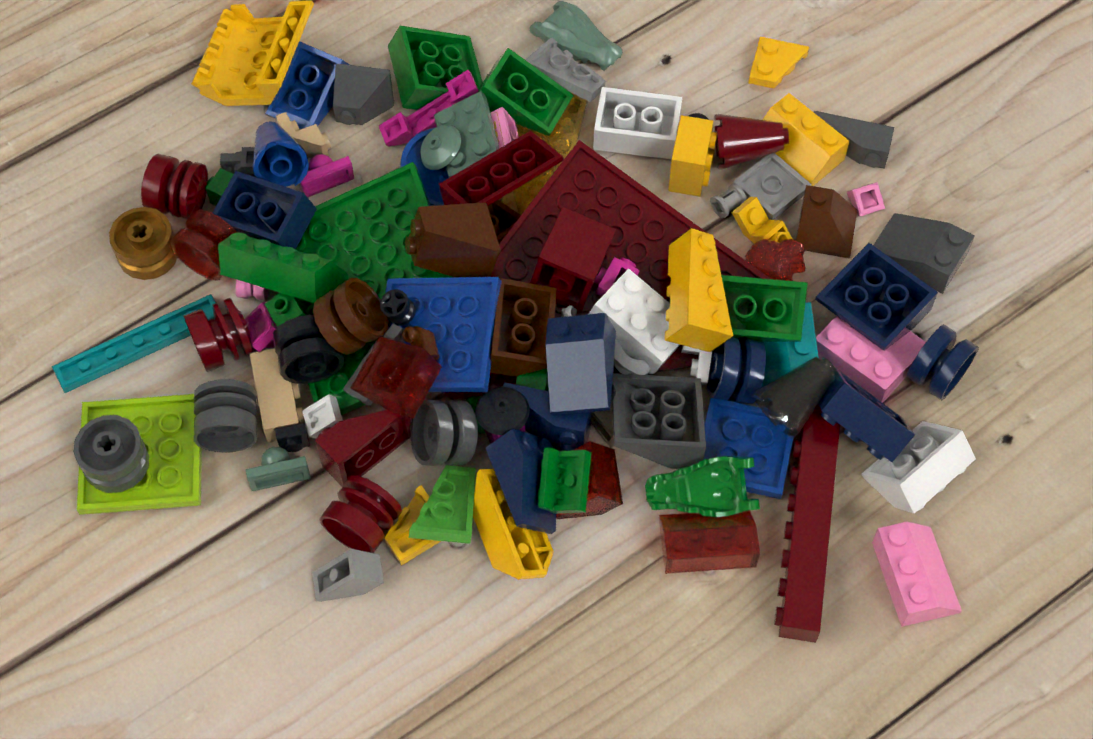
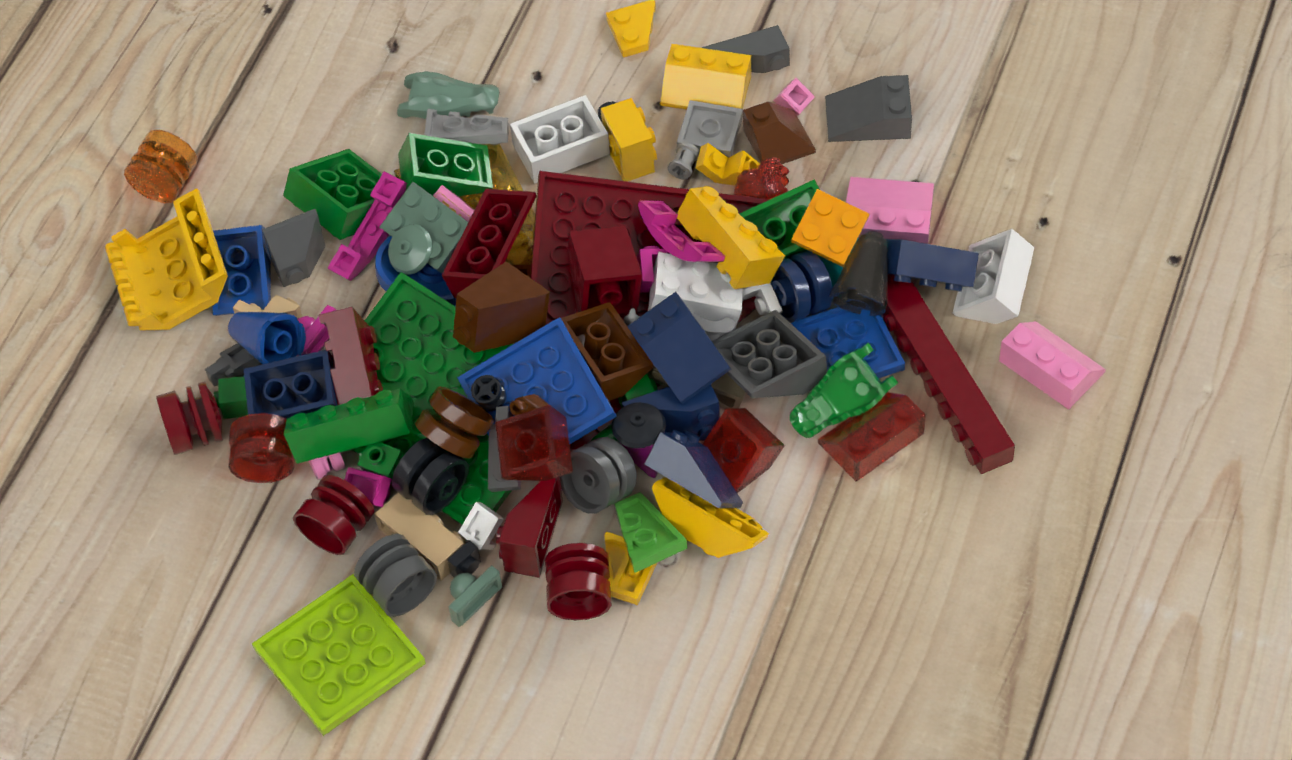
camera: 30 degrees left, 5 degrees down
(111, 453) = (322, 662): dark grey wheel -> none
(129, 346) = (252, 575): teal tile -> none
(143, 243) = (197, 482): pearl gold wheel -> none
(323, 211) = (352, 355): none -> wedge
(348, 575) = (601, 638): light grey slope -> none
(564, 481) = (729, 451): green bracket -> none
(650, 261) = (661, 223): none -> dark pink slope
(747, 139) = (666, 99): dark red cone -> none
(792, 334) = (830, 227): none -> light orange plate
(878, 297) = (867, 165): dark blue slope -> none
(942, 361) = (955, 187): dark blue wheel -> none

